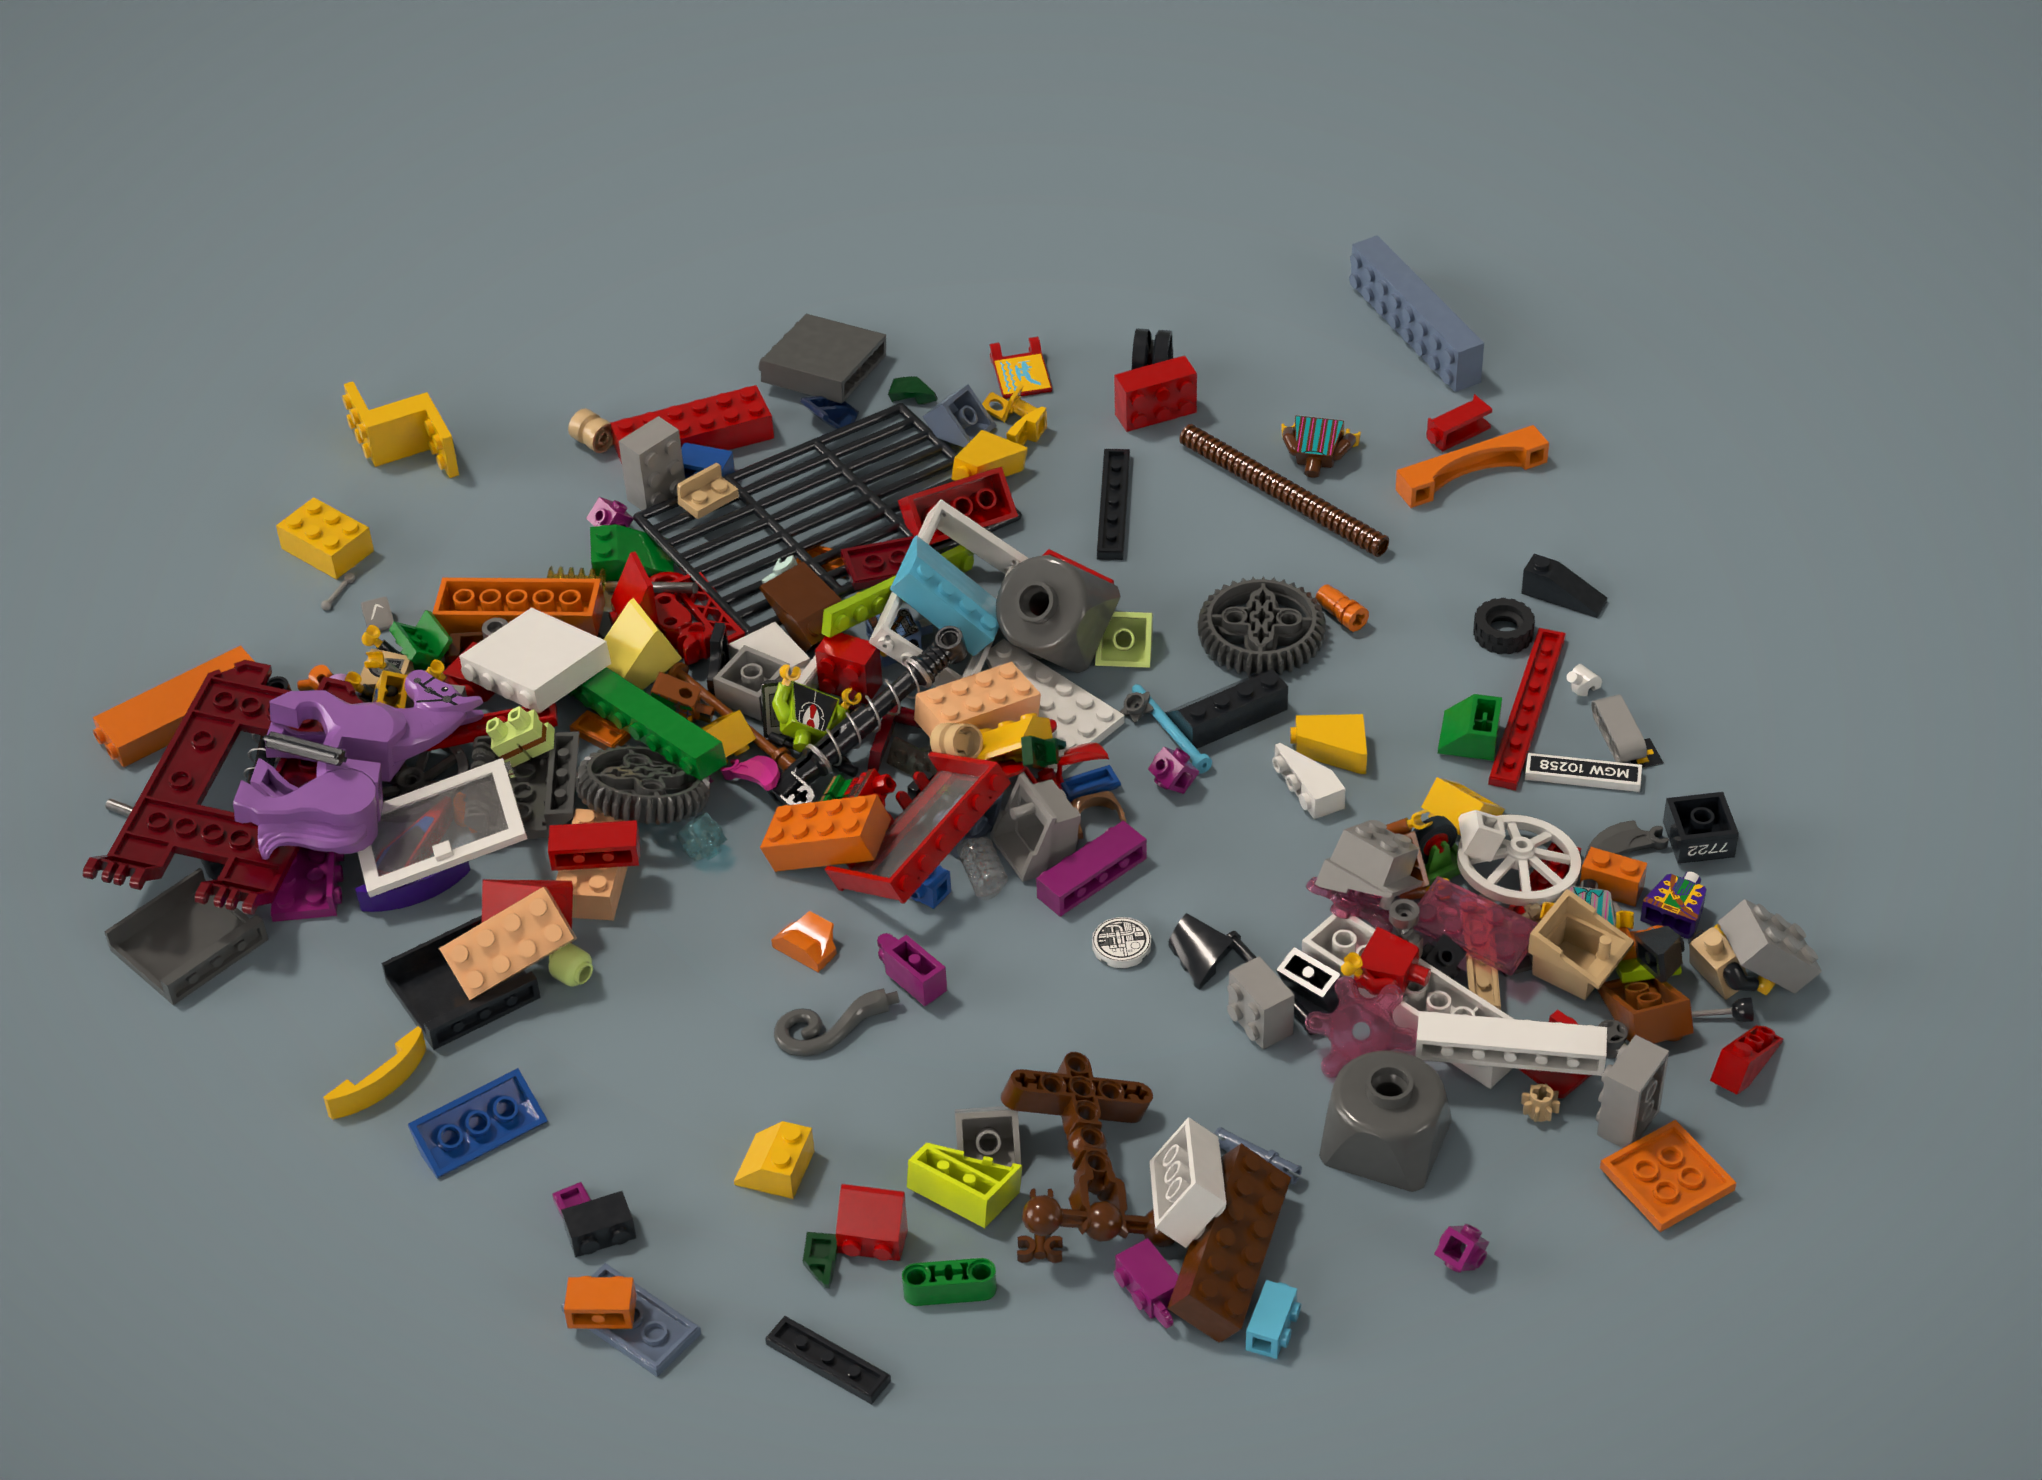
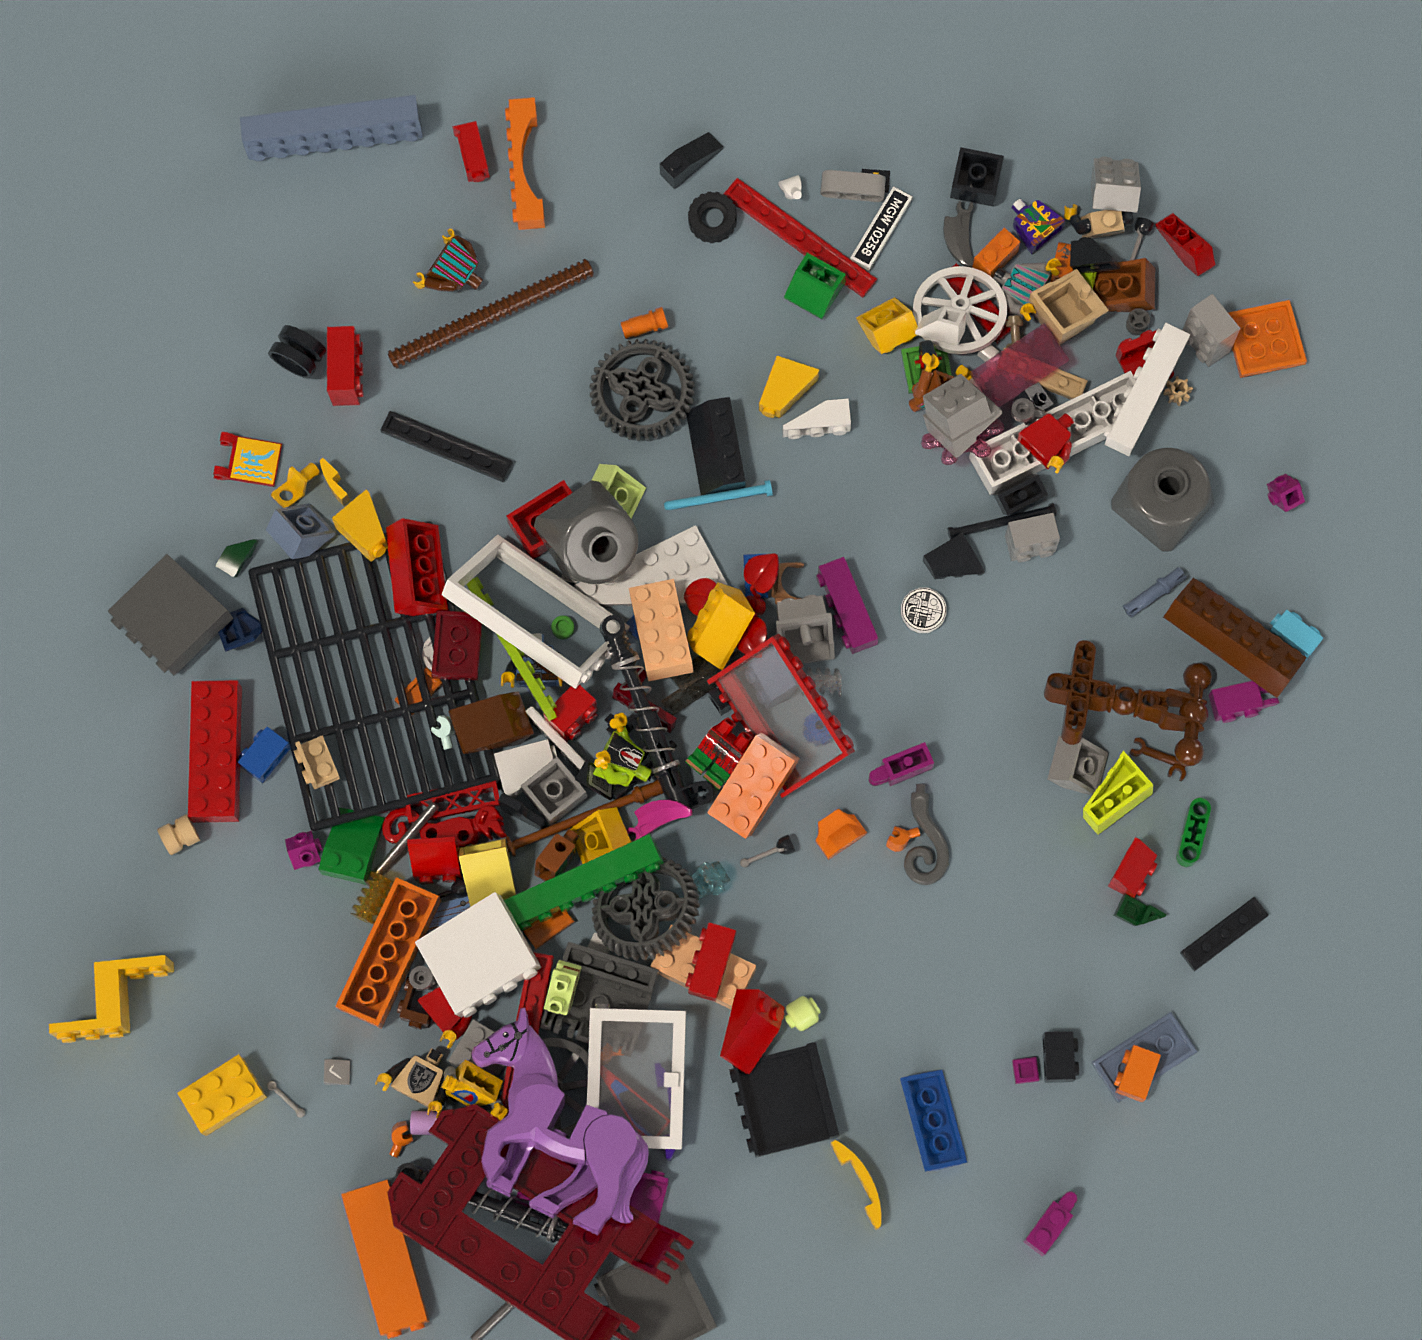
camera: 70 degrees left, 30 degrees up
(305, 748) = (550, 1161): axle -> none
(377, 1273) = (1051, 1224): none -> magenta hinge
(423, 642) = (402, 1040): green bracket -> none
(508, 943) = (789, 1053): light nougat brick -> none
(652, 463) = (268, 795): light grey brick -> none
(767, 893) = (783, 846): none -> hinge
(777, 1159) = (1042, 918): yellow slope -> none
(823, 998) = (901, 838): none -> orange piece
(946, 595) = (549, 609): medium azure slope -> none
(957, 739) = (712, 658): tan wheel -> none
(1039, 752) = (753, 599): dark green slope -> none
(1136, 699) = (693, 516): dark grey plate -> none
(1173, 770) = (774, 511): magenta brick -> none
(1187, 1183) = (1189, 646): white brick -> none
(1355, 1008) = (1074, 480): clear pink plate -> none

